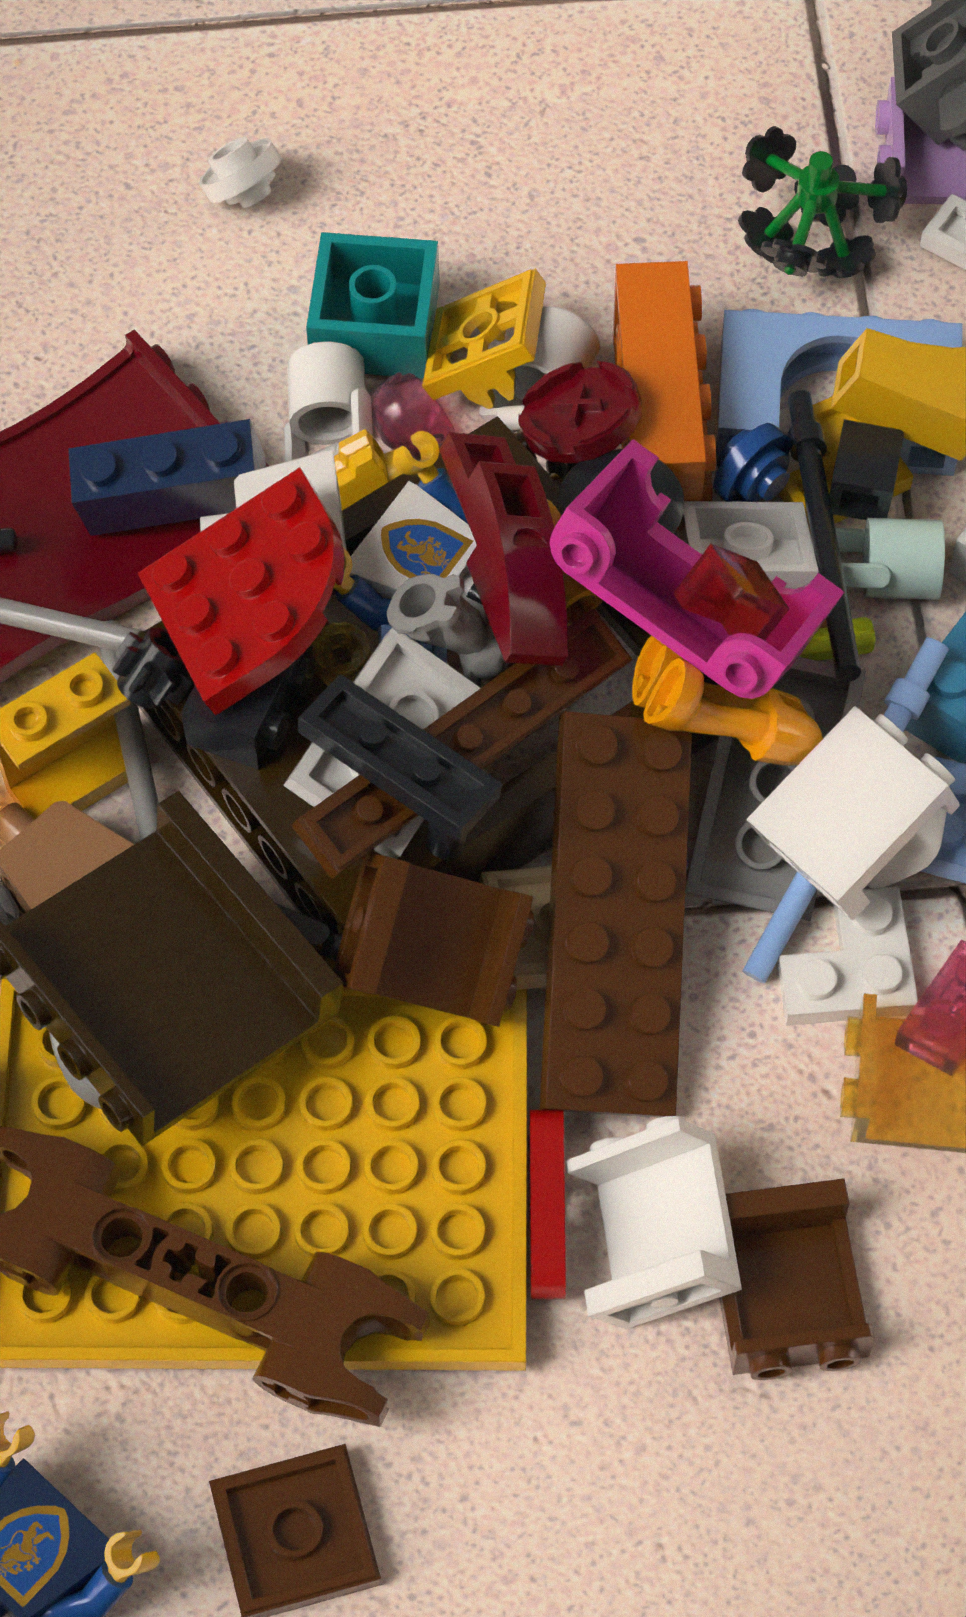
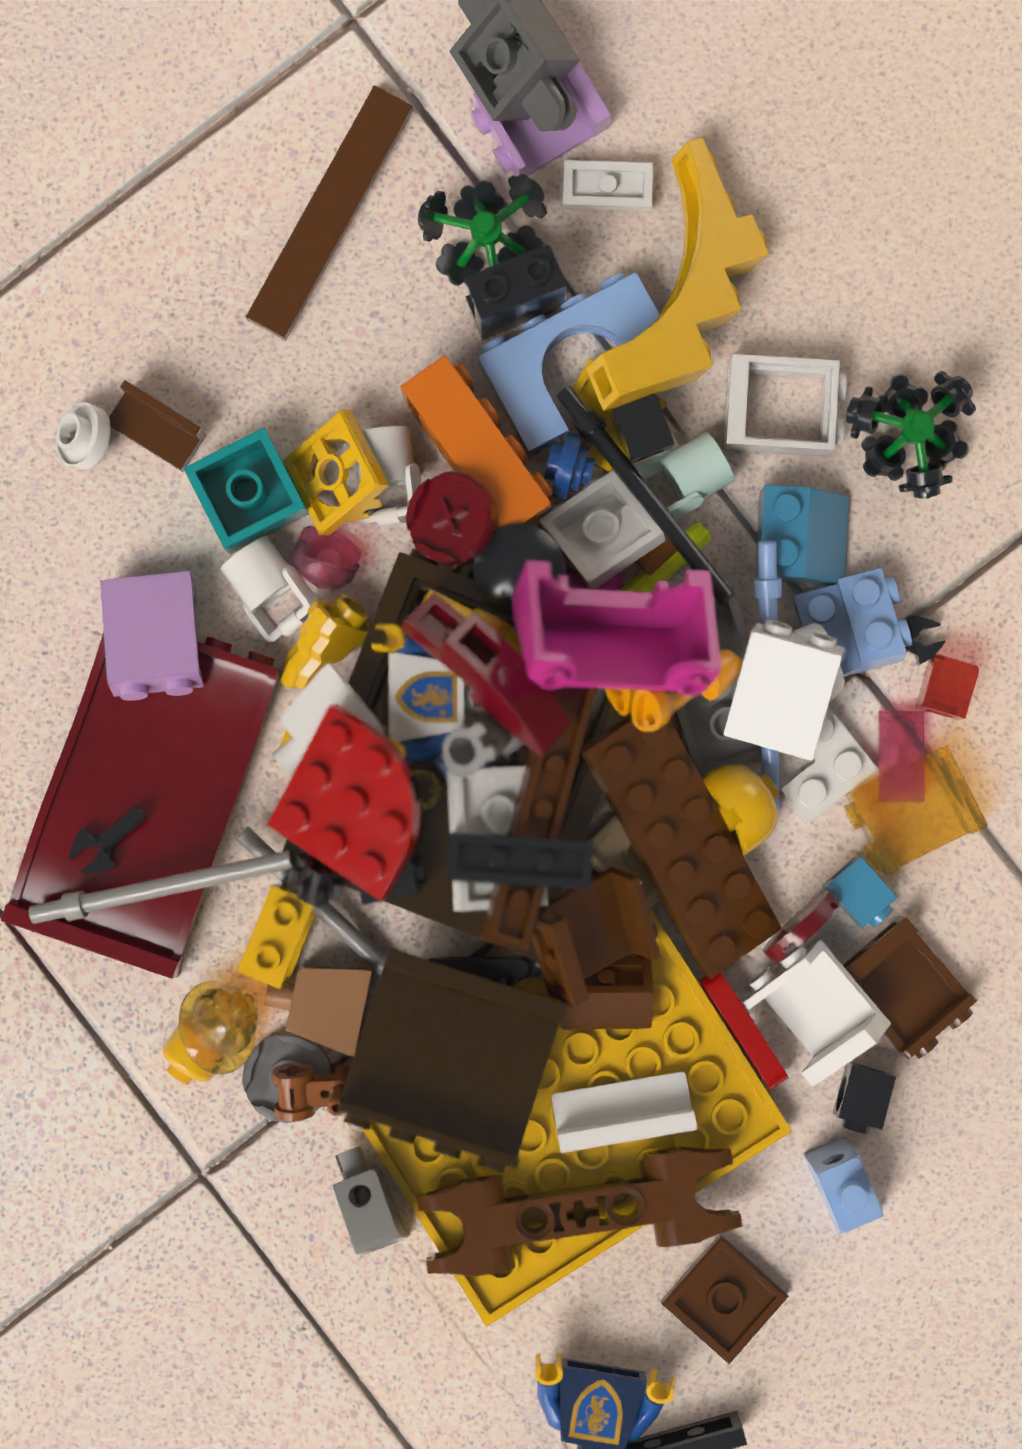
camera: 35 degrees left, 25 degrees up
(161, 372) = (150, 635): none -> lavender panel
(162, 476) = (214, 715): dark blue brick -> none
(322, 197) = (156, 427): none -> reddish brown panel
(325, 1197) = (623, 1111): none -> white panel
(401, 1050) = (617, 998): none -> reddish brown panel
(545, 1480) = (843, 1185): none -> light blue torso
(647, 1379) = (863, 1097): none -> black brick
(656, 122) = (329, 212): none -> reddish brown tile
(706, 1100) = (801, 926): none -> dark red tile
(721, 930) = (744, 803): none -> yellow cylinder
(732, 593) = (649, 614): clear red panel -> none
(803, 1128) = (861, 893): none -> dark azure brick
(809, 256) = (515, 291): none -> black panel

